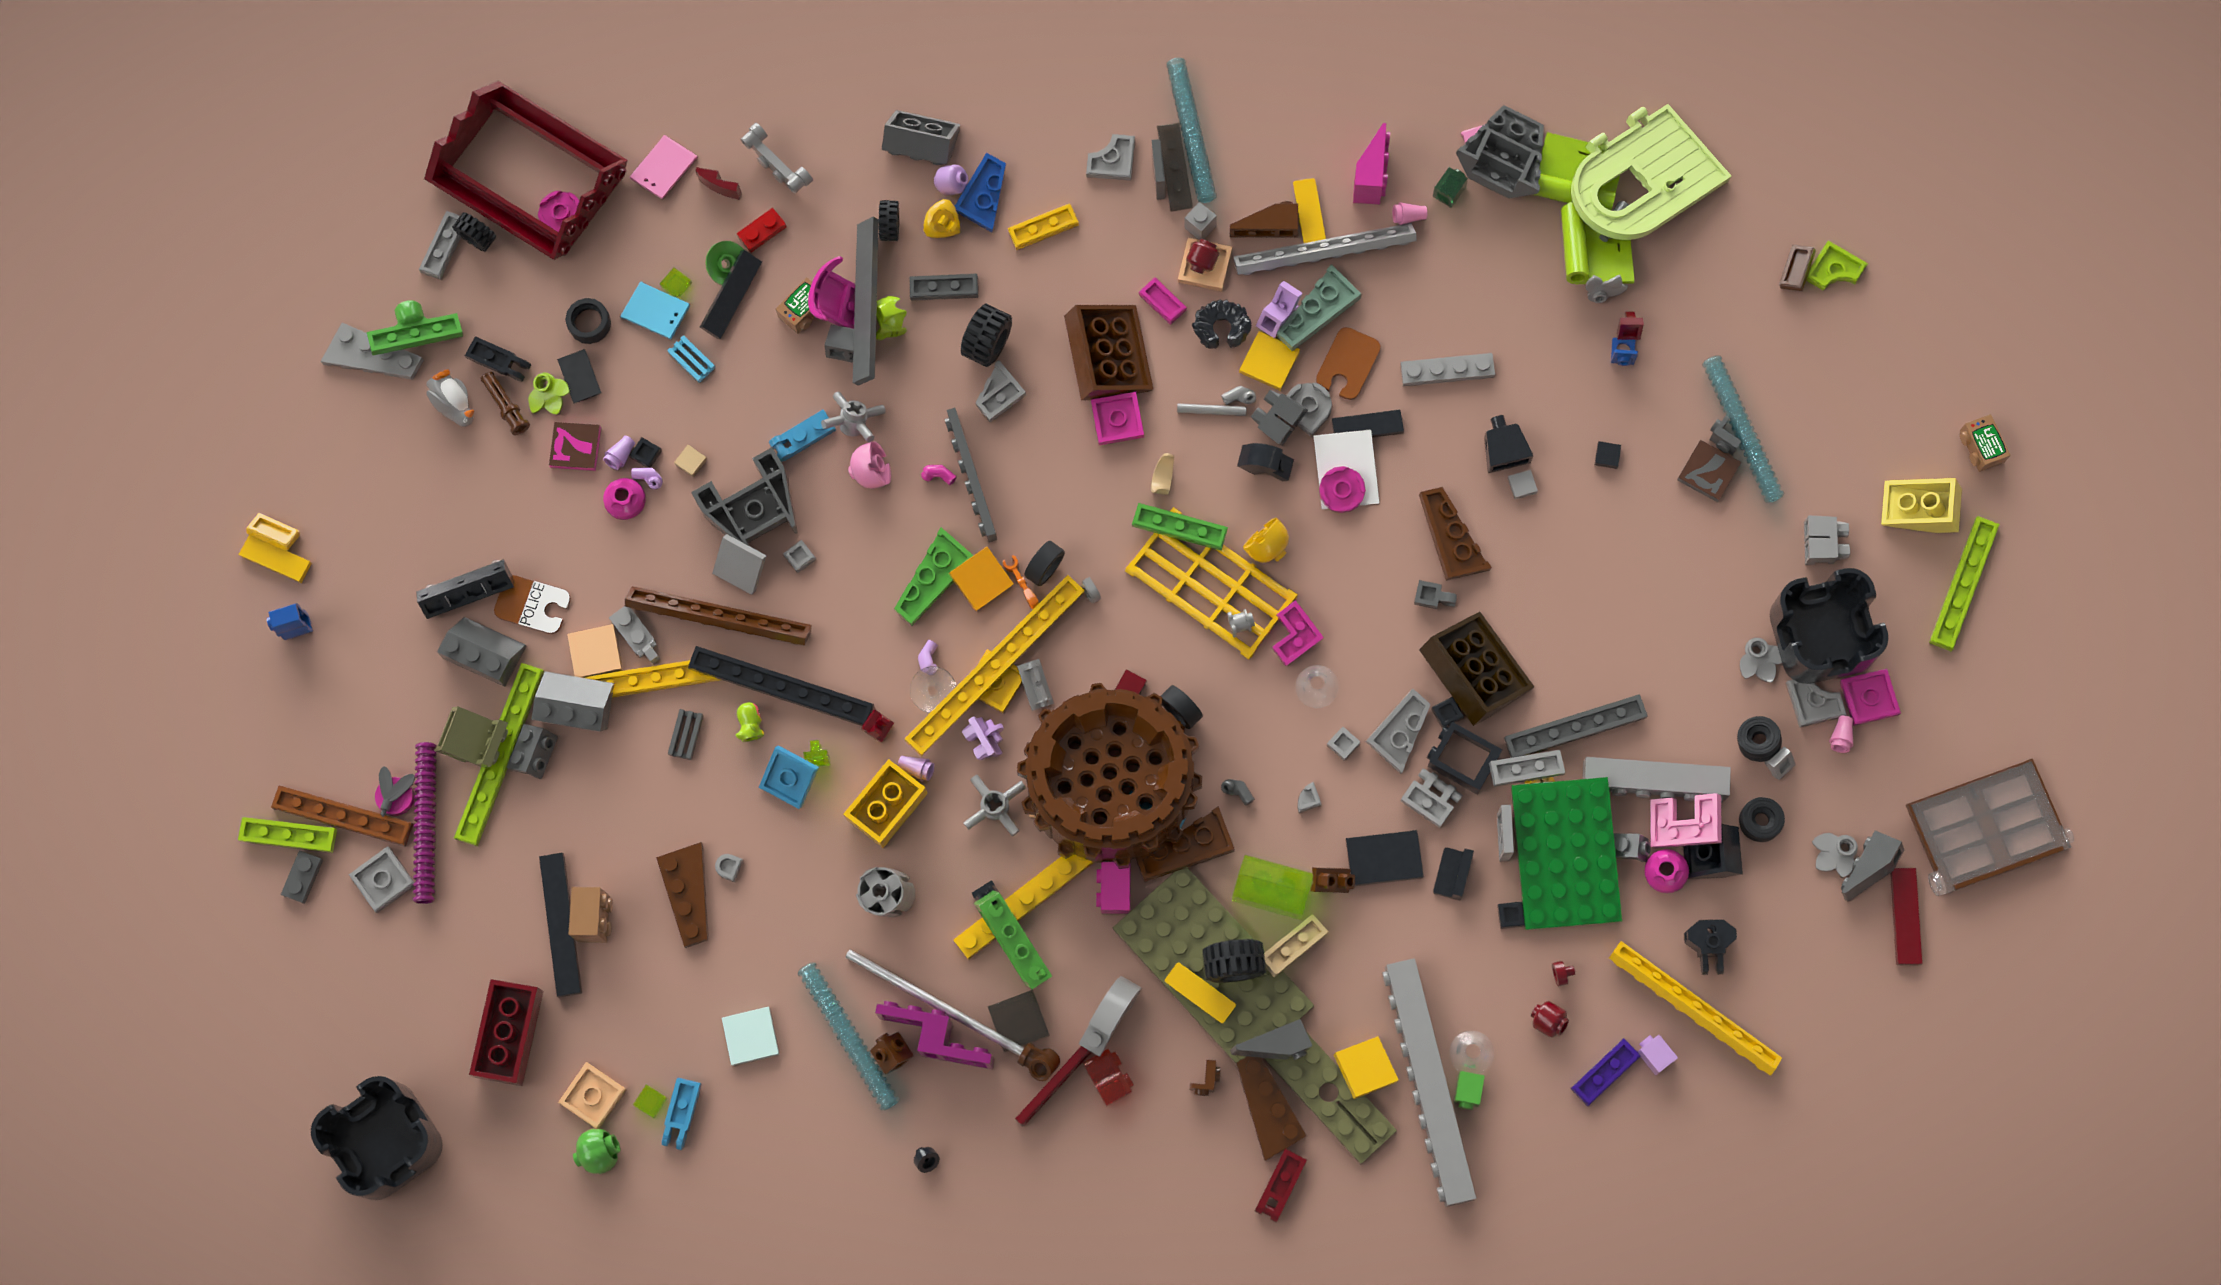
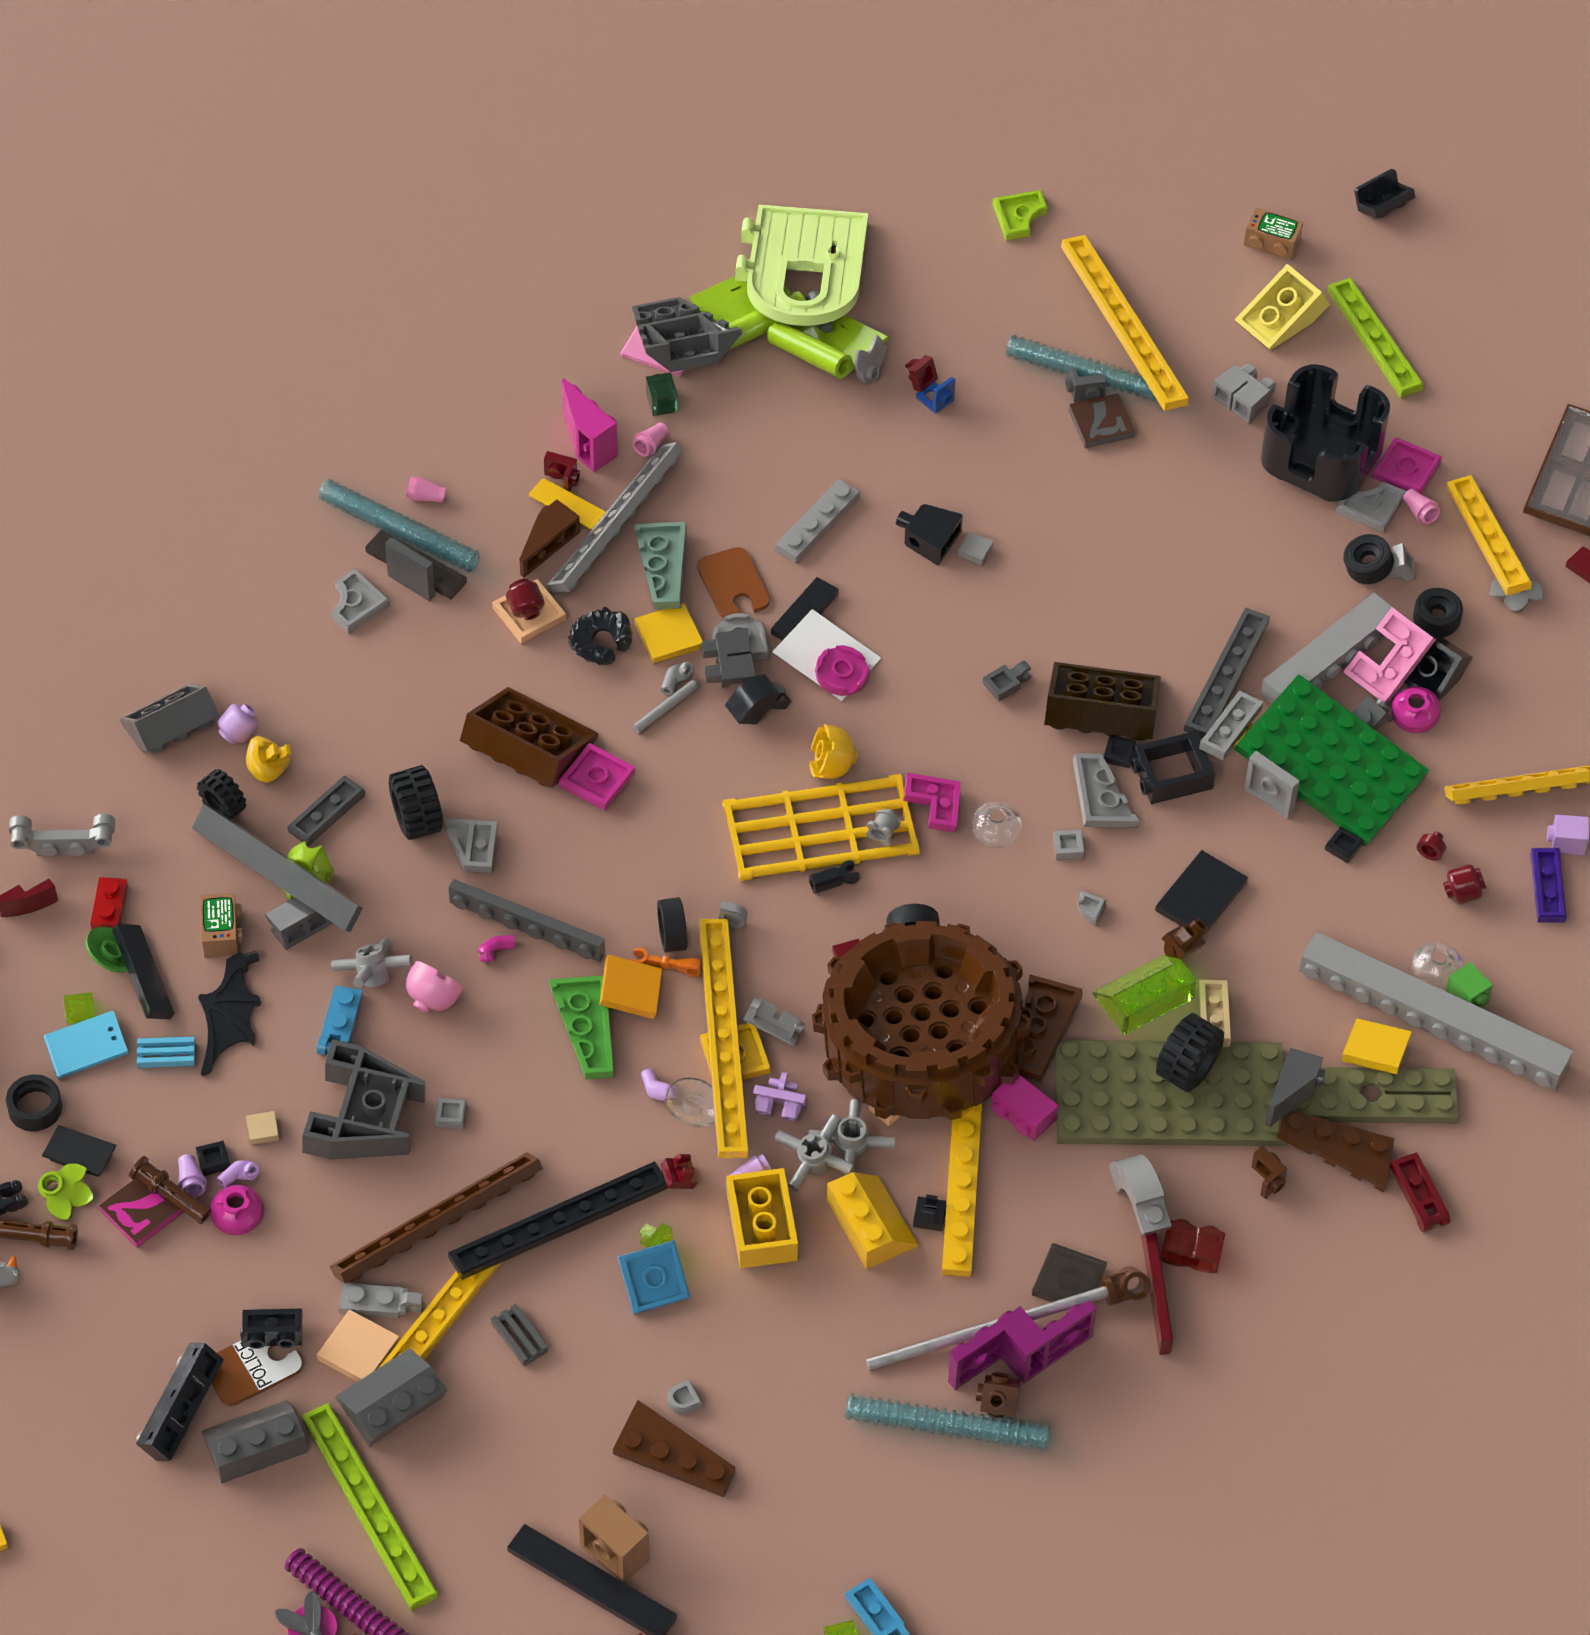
camera: 55 degrees left, 20 degrees down
(289, 621) = (44, 1574): blue brick -> none
(472, 737) = (333, 1508): olive piece -> none
(532, 751) = (397, 1472): dark grey bracket -> none
(559, 593) = (271, 1328): none -> black bracket
(594, 443) = (159, 1181): none -> reddish brown pin
(739, 564) = (409, 1157): light grey tile -> none
(749, 719) = (566, 1269): lime animal -> none
(750, 1036) = (864, 1505): light aqua tile -> none
(753, 366) = (229, 1009): none -> black animal
(832, 296) = (243, 885): dark pink piece -> none
(885, 892) = (837, 1284): light grey cylinder -> none
(926, 1159) = (1126, 1448): black tile -> none
(950, 866) = (869, 1218): none -> yellow slope
(969, 796) = (808, 1153): none -> light grey bar
(982, 193) = (275, 714): blue wing -> none
(1013, 939) = (994, 1220): bright green window -> none
(1043, 226) = (357, 697): yellow tile -> none
(1162, 300) = (526, 665): dark pink tile -> none
(1163, 475) = (683, 786): tan helmet -> none
(1178, 624) = (833, 877): none -> black bar
(1179, 526) = (747, 806): bright green tile -> none
(1200, 221) = (489, 580): light grey brick -> none
(1200, 992) = (1187, 1112): yellow piece -> none
(1233, 120) = (424, 490): none -> bright pink cone
(1238, 788) = (1028, 949): dark grey arm -> none
(1279, 310) = (634, 584): lavender brick -> none
(1330, 183) = (562, 468): none -> dark red bracket
(1426, 802) = (1183, 825): light grey plate -> none
(1453, 543) = (965, 628): reddish brown wing -> none
(1453, 873) = (1267, 853): black panel -> none
(1607, 455) = (1013, 474): black tile -> none
(1710, 944) = (1510, 723): black hinge -> none
(1760, 664) = (1299, 510): light grey plate -> none
(1797, 267) = (993, 234): tile -> none
(1800, 416) = (1125, 323): none -> yellow plate
(1860, 799) = (1489, 535): none -> yellow tile
(1877, 861) = (1554, 567): dark grey slope -> none
(2095, 485) = (1382, 195): none -> black bracket

